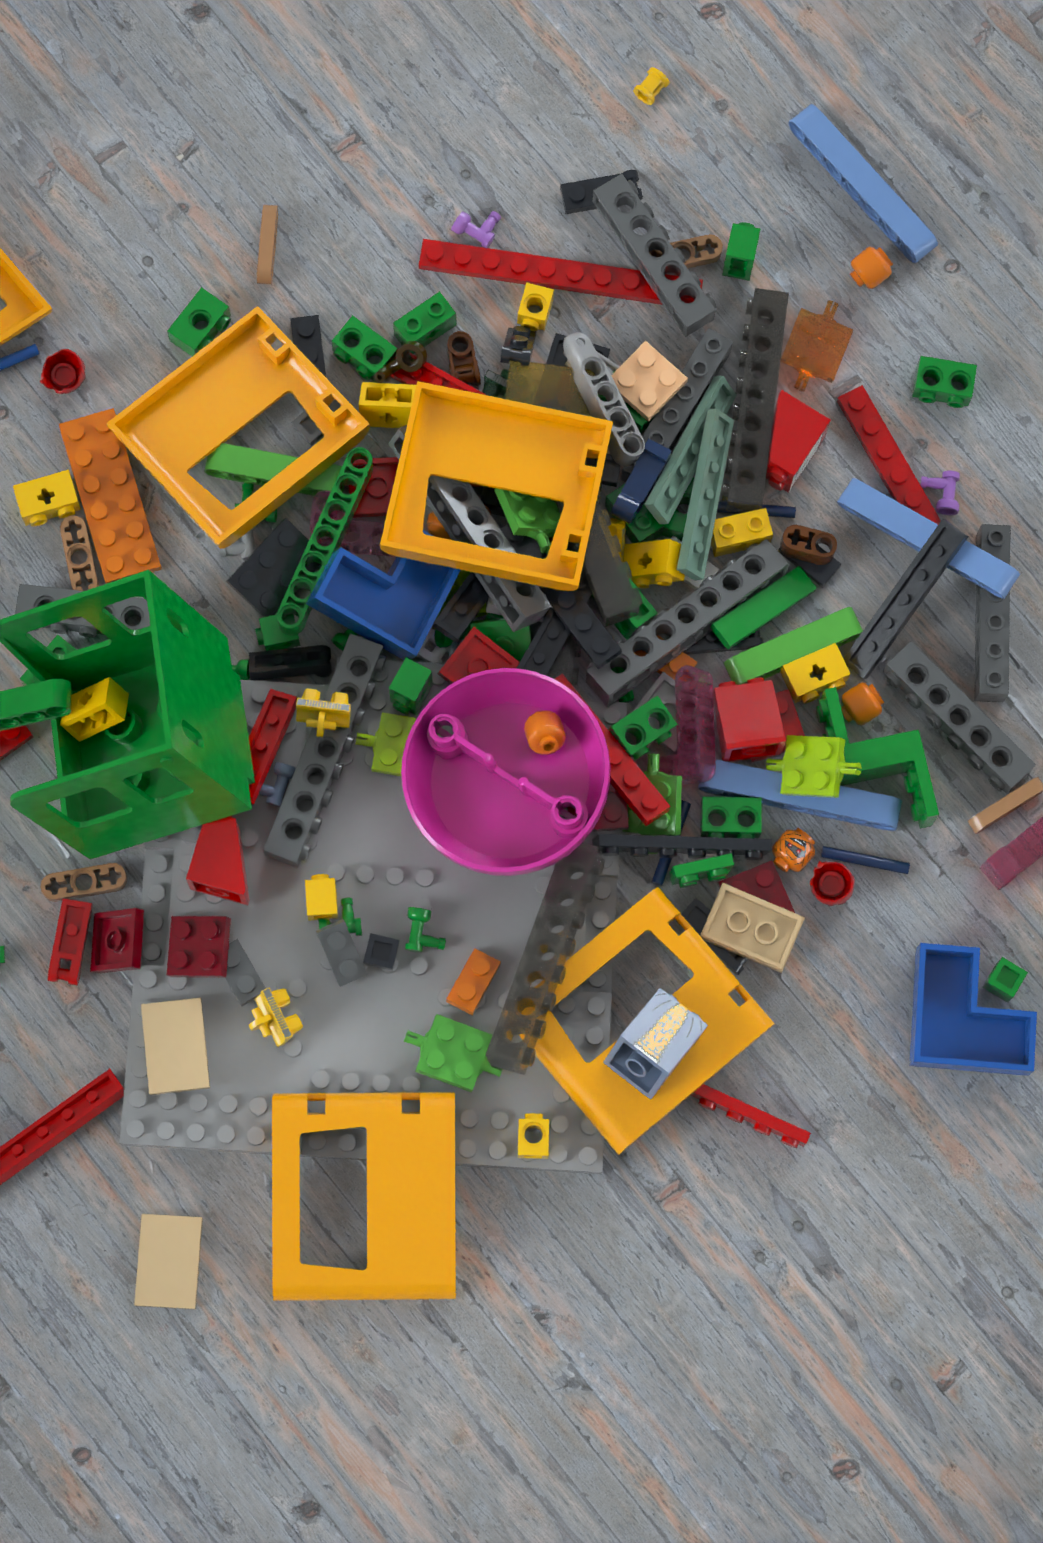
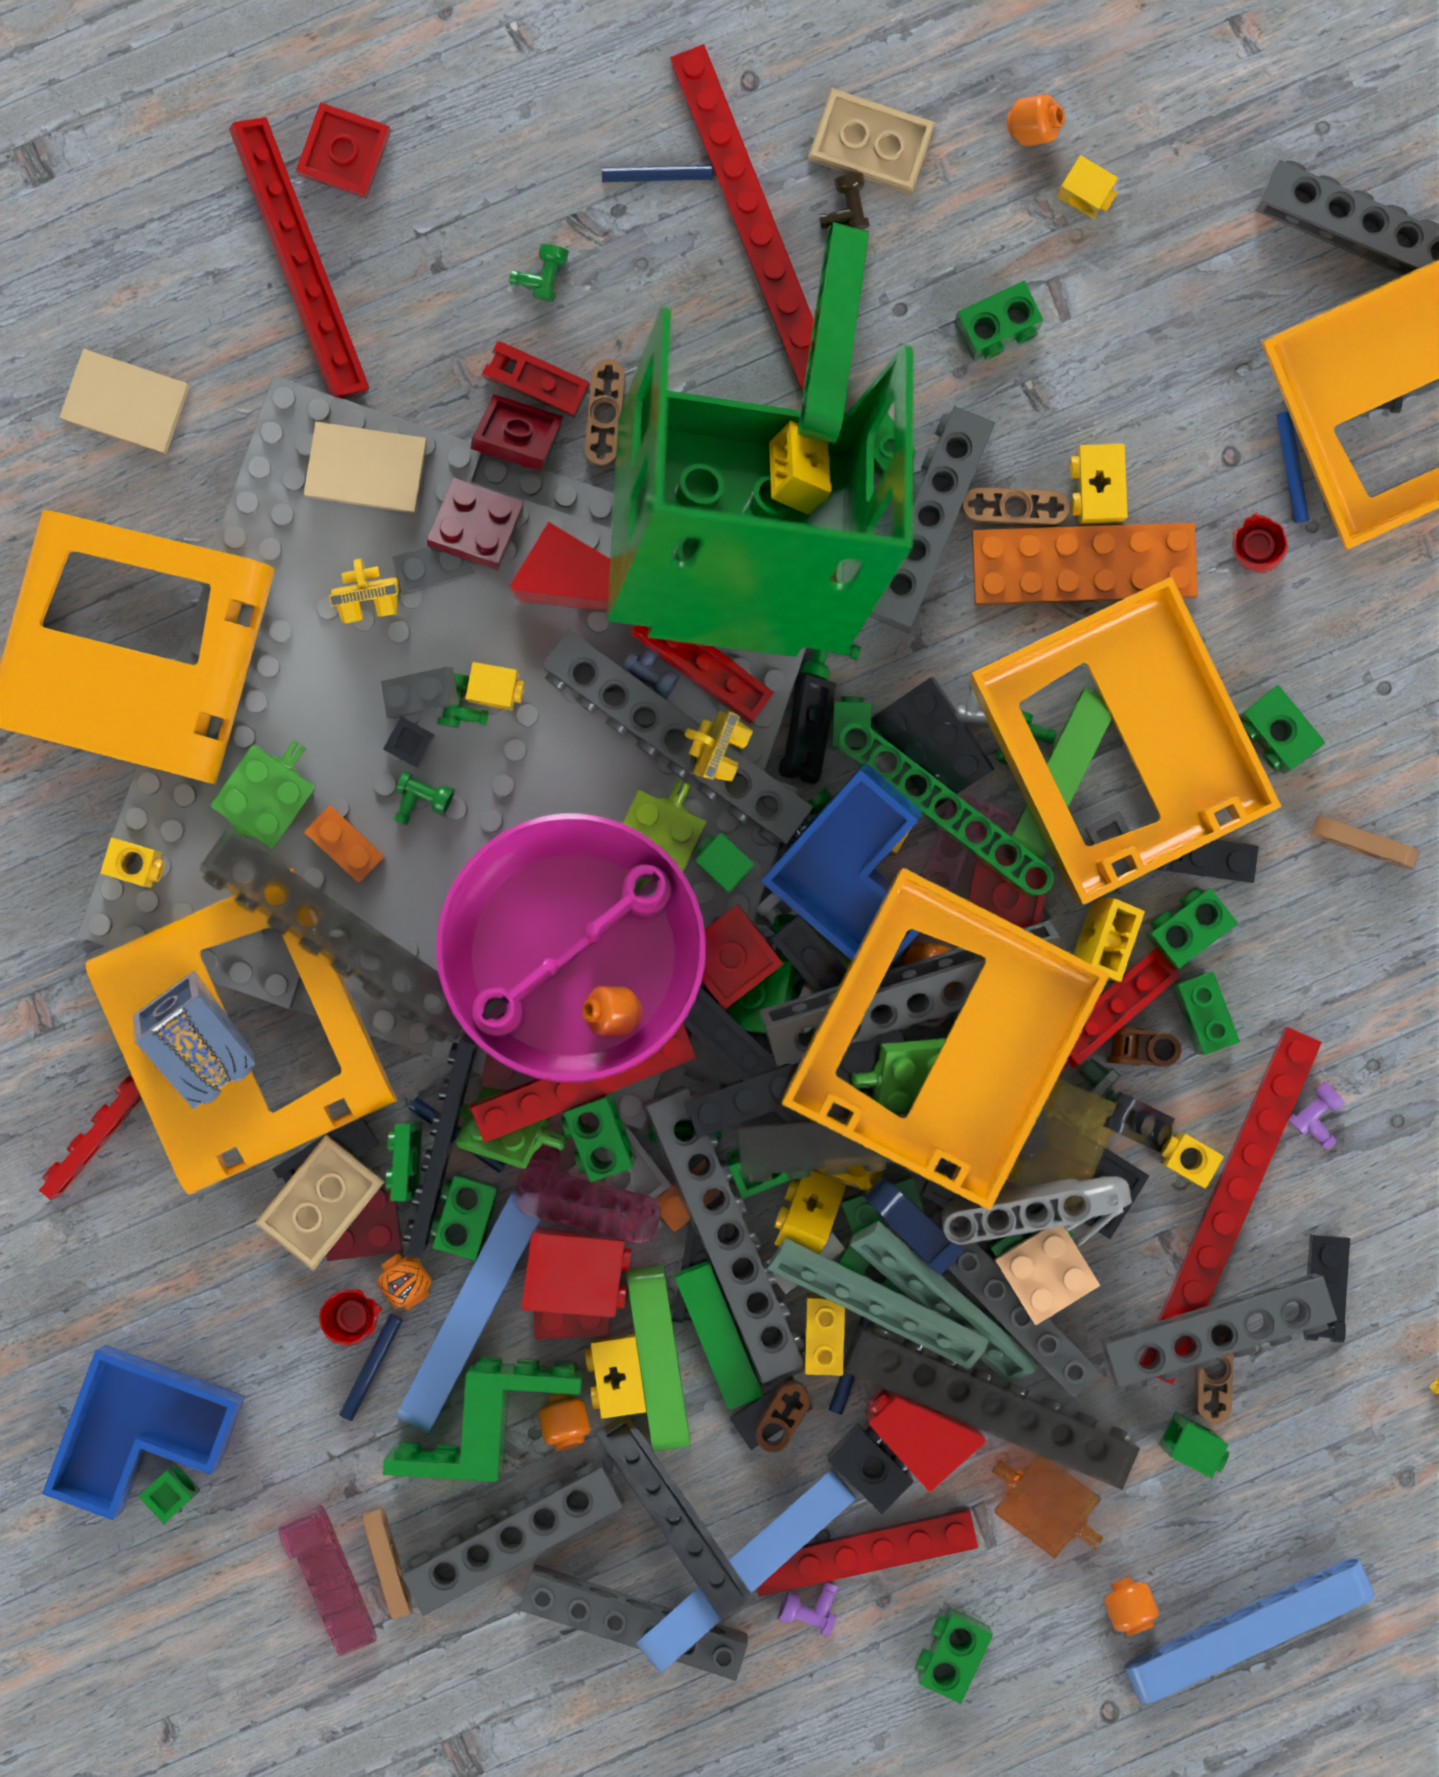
camera: 115 degrees right, 10 degrees up
(403, 361) = (1159, 971): dark brown plate -> none
(813, 766) = (489, 1335): lime plate -> none
(821, 490) = (879, 1488): none -> black brick

